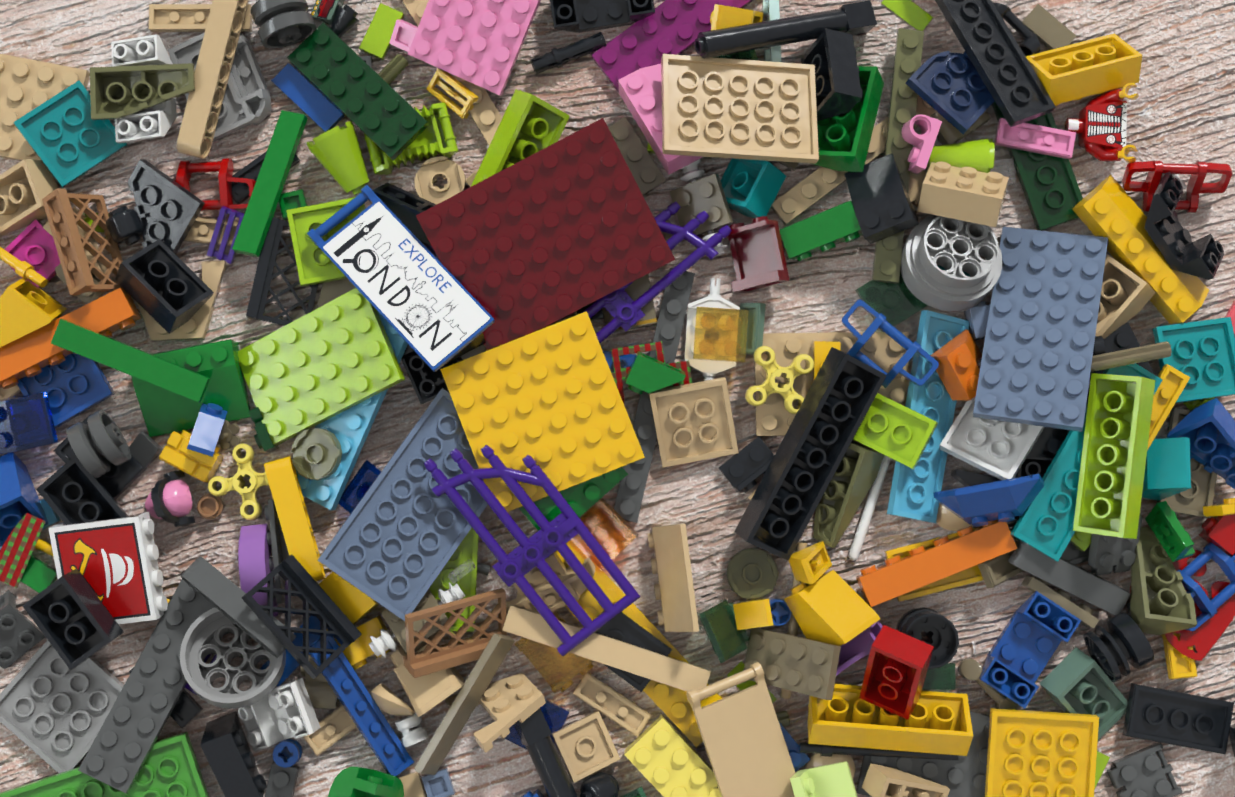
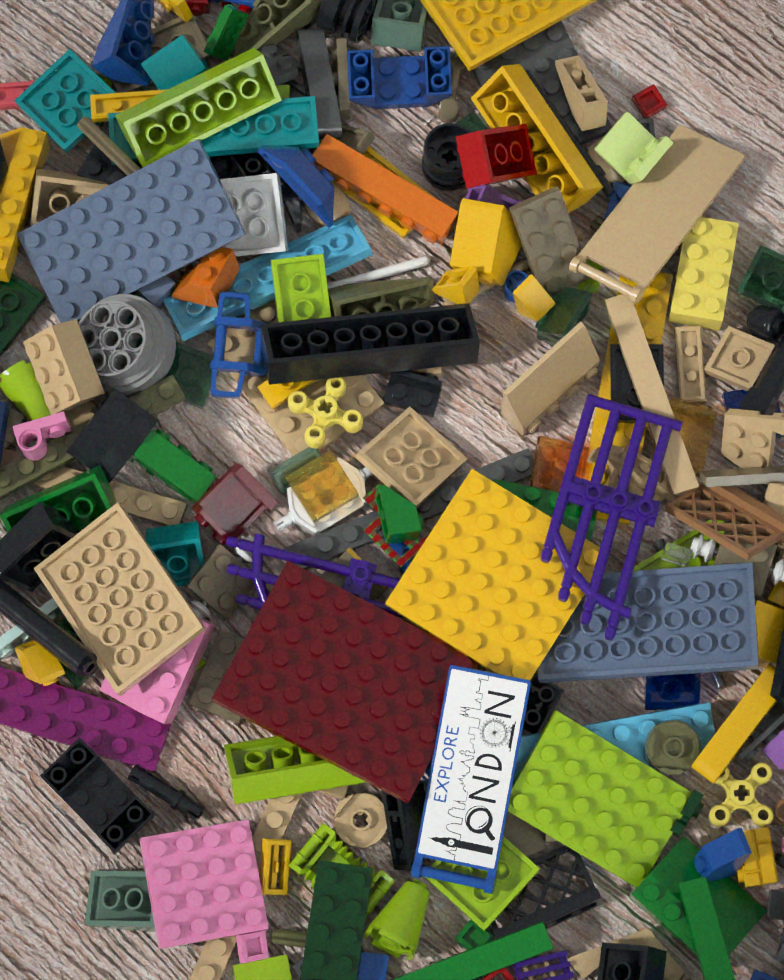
camera: 120 degrees left, 10 degrees down
(752, 573) = (500, 329): olive tile -> none

